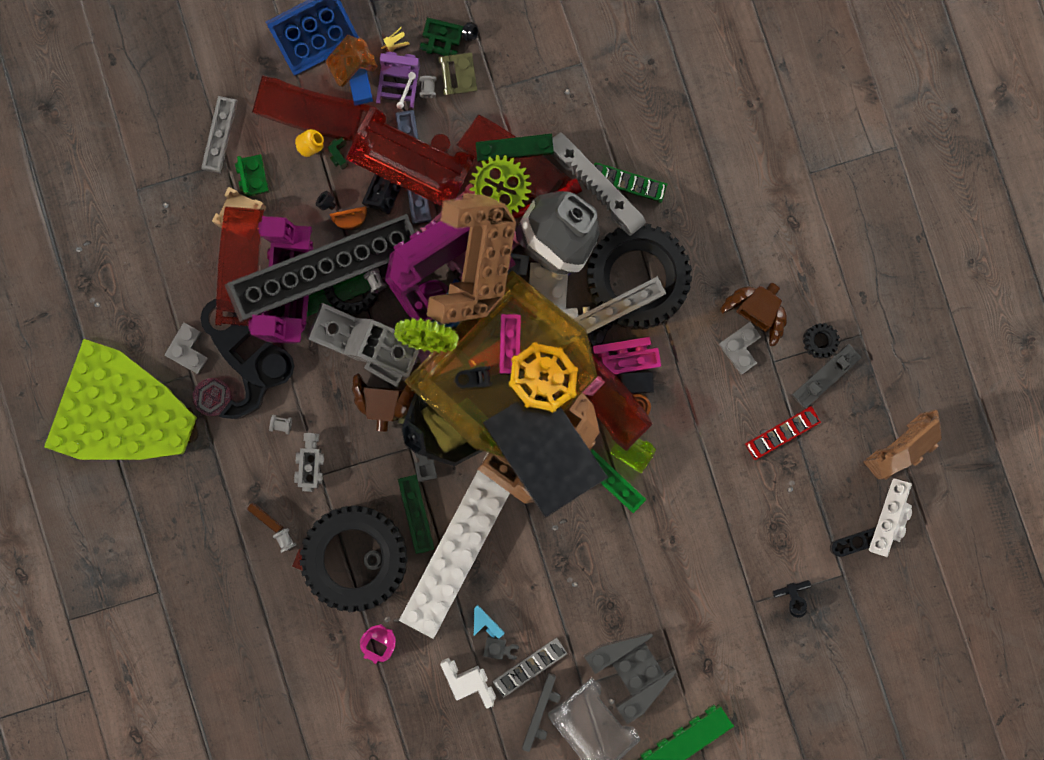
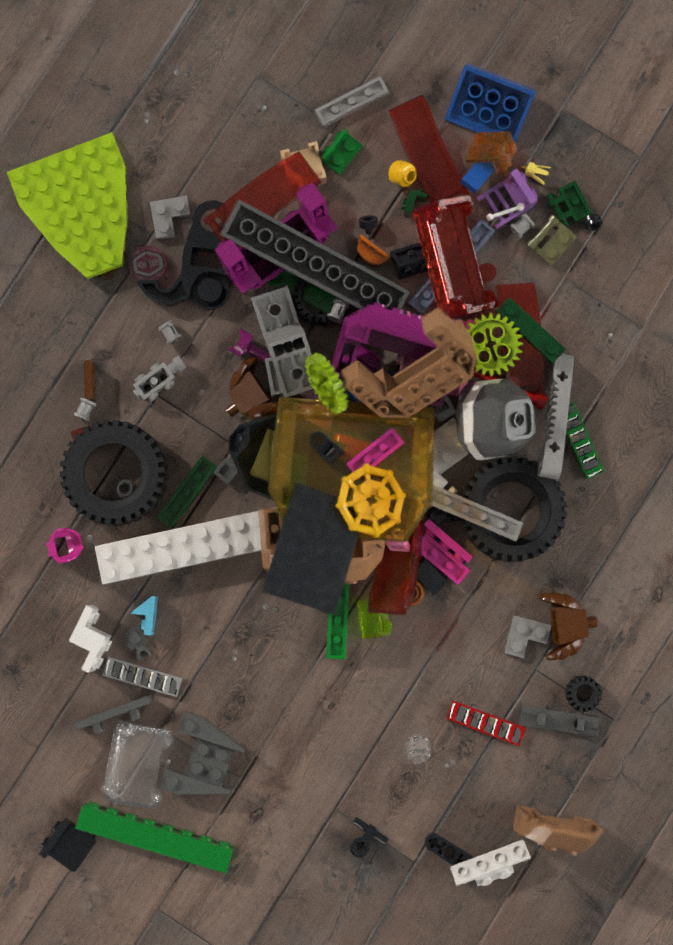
camera: 55 degrees right, 0 degrees up
(340, 374) = (245, 345): none -> magenta piece
(760, 500) = (418, 748): none -> clear head

